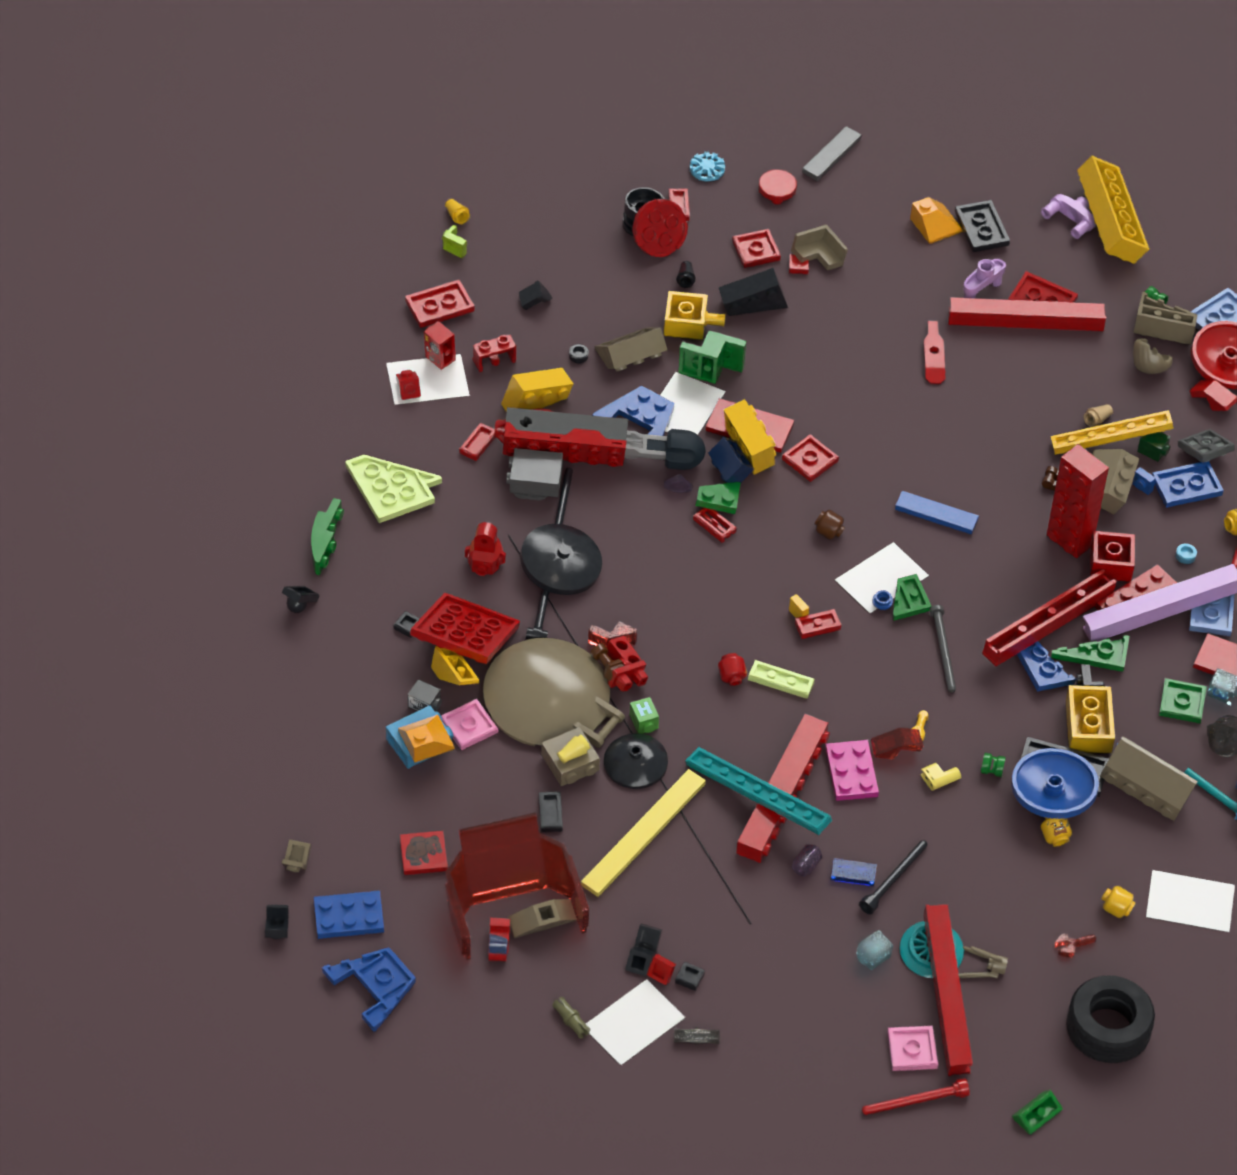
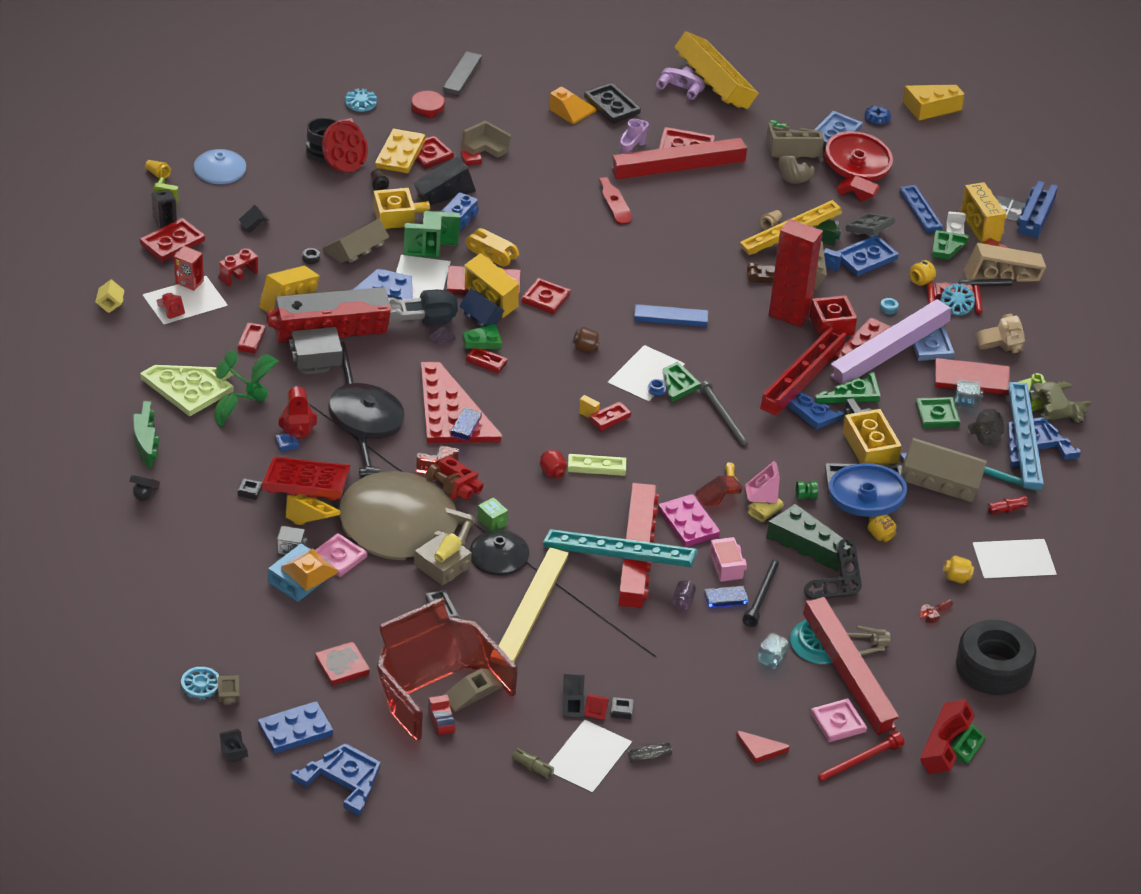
camera: 20 degrees left, 10 degrees down
(273, 839) = (200, 682): none -> medium azure wheel
(348, 360) = (110, 296): none -> light yellow brick
(442, 260) = (164, 204): none -> black torso
(453, 507) = (254, 388): none -> green plant
(466, 577) = (286, 443): none -> blue tile
(525, 221) = (219, 166): none -> light blue dish
(651, 577) = (443, 405): none -> wing
(657, 600) = (466, 423): none -> clear blue tile
(723, 241) = (400, 151): none -> yellow plate
(758, 332) = (465, 206): none -> blue brick
(774, 385) = (492, 247): none -> yellow piece
(816, 1060) = (761, 748): none -> tile
(871, 828) = (727, 559): none -> bright pink brick
(946, 750) = (765, 485): none -> bright pink slope
(971, 823) = (806, 534): none -> dark green wedge
(989, 881) = (845, 576): none -> black beam
(1030, 1082) = (952, 720): none -> red arch
(1209, 835) = (1007, 505): none -> red pin

